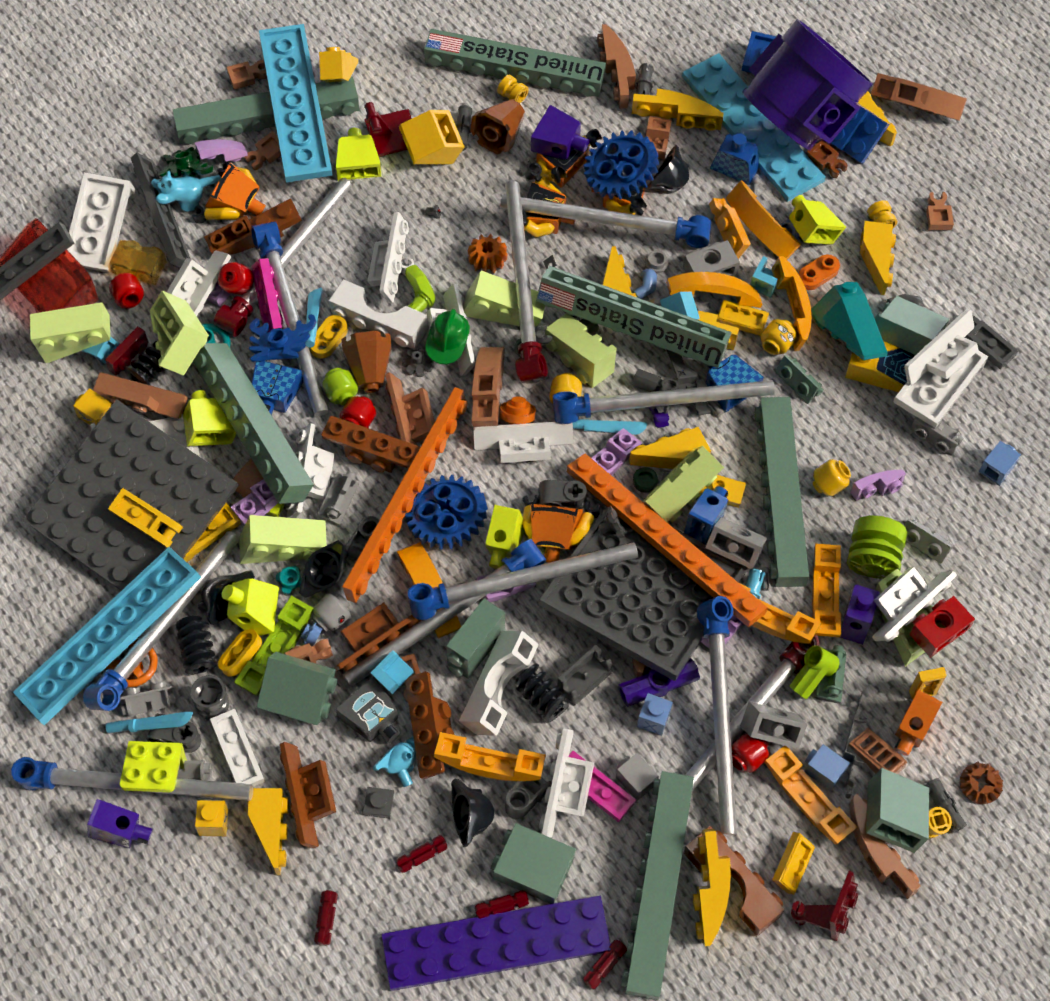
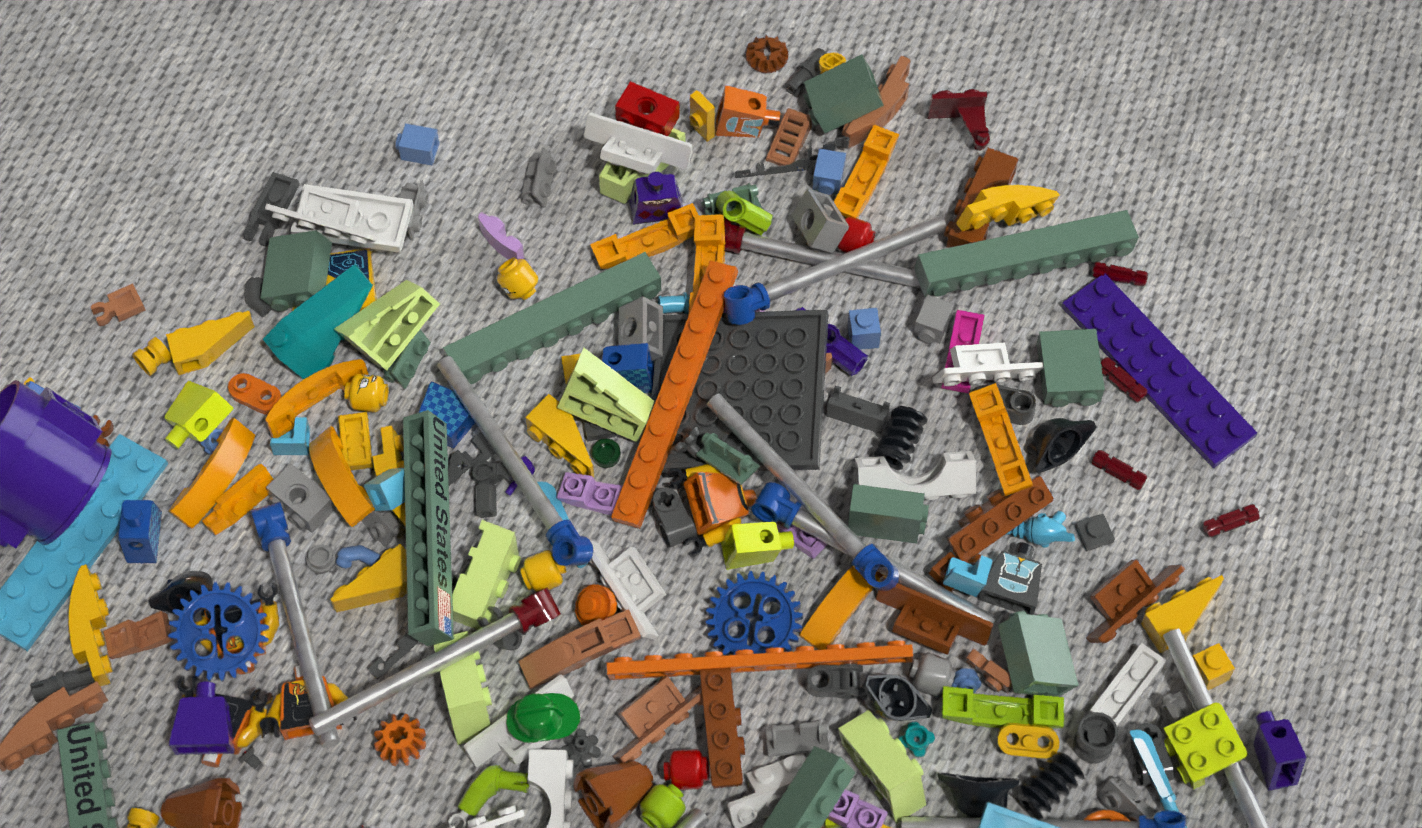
camera: 115 degrees left, 0 degrees up
(252, 605) = (976, 748): neon yellow torso -> none
(581, 541) = (726, 459): none -> sand green hinge
(793, 863) = (936, 164): yellow plate -> none
(828, 364) = (389, 323): none -> yellowish green wedge
(876, 546) = (580, 206): lime wheel -> none

